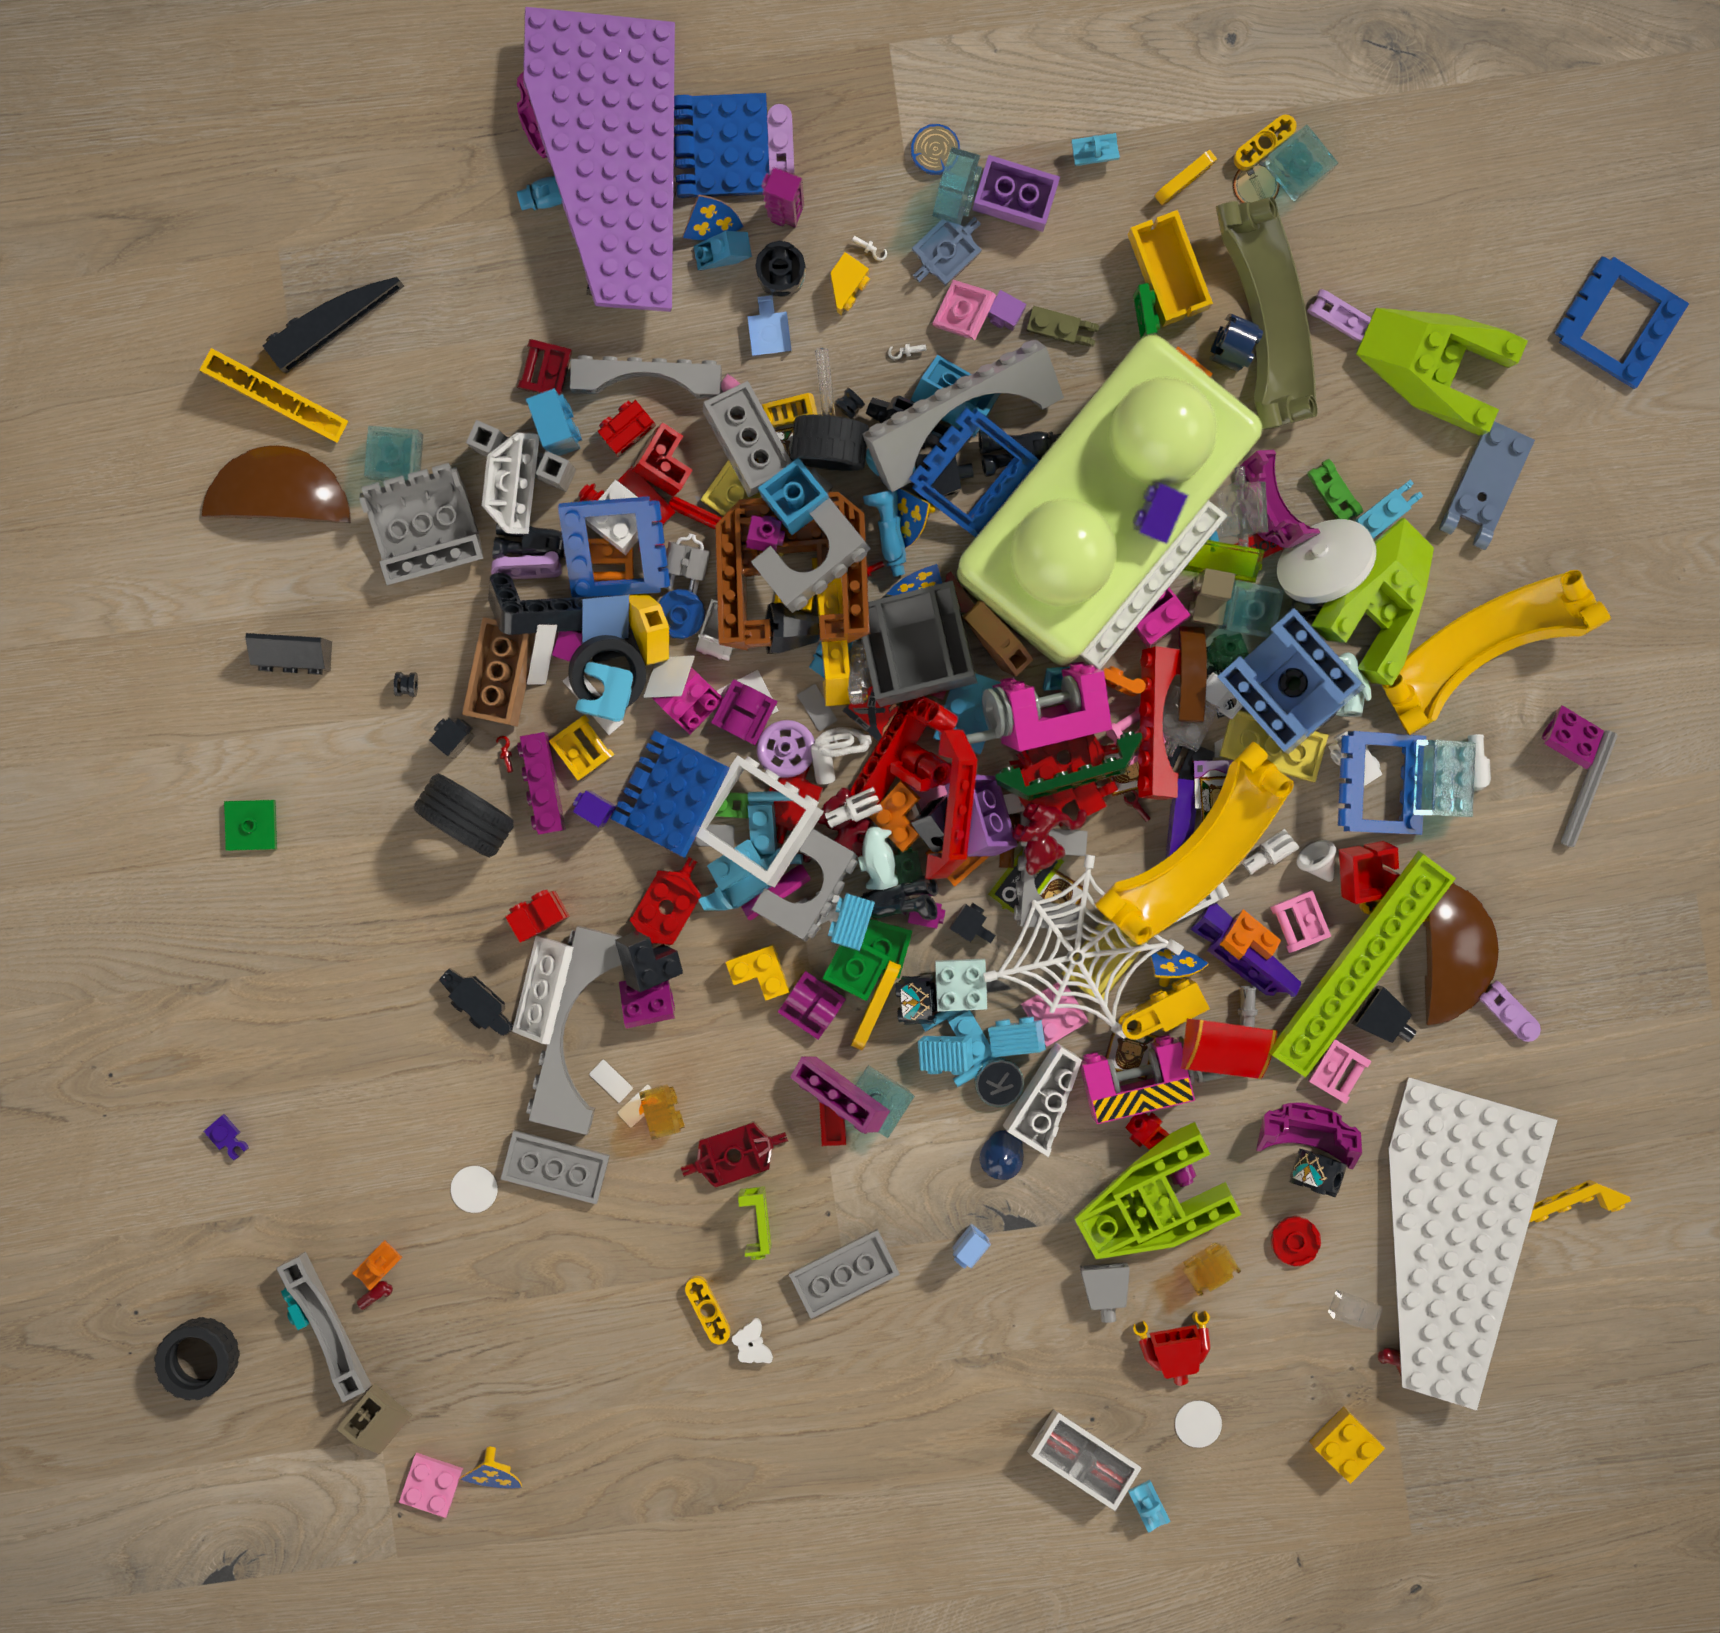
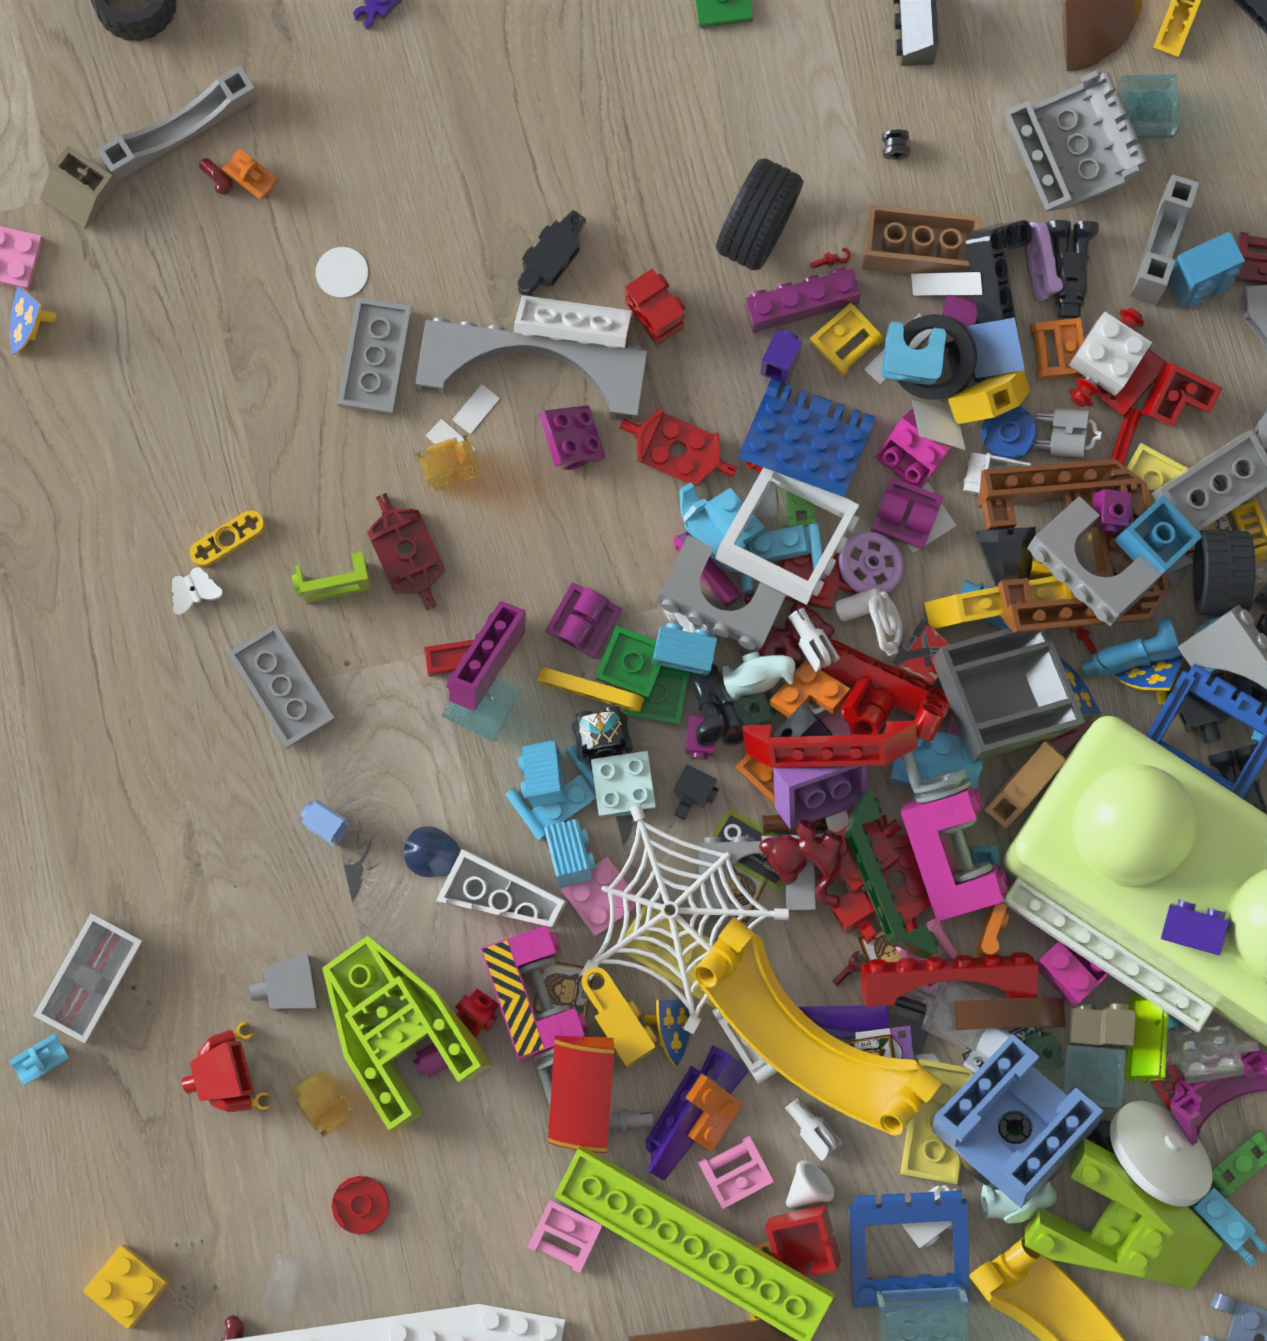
camera: 90 degrees right, 10 degrees down
(295, 1313) = (188, 92): teal plate -> none
(452, 736) = (844, 197): black brick -> none
(511, 482) = (1133, 229): white wedge -> none
(577, 549) = (1093, 384): blue hinge -> none
(626, 427) = (1210, 352): red brick -> none
(643, 964) = (610, 426): black brick -> none
(761, 964) = (623, 559): yellow brick -> none
(815, 707) = (926, 590): light grey sticker -> none
(859, 674) = (953, 631): clear beam -> none
(999, 1082) = (515, 840): black tile -> none
(1198, 1424) = (137, 1112): white sticker -> none
(1313, 1127) = (496, 1209): magenta windscreen -> none
(1318, 1173) = (444, 1218): black brick -> none
(1385, 1017) = (633, 1283): black torso -> none

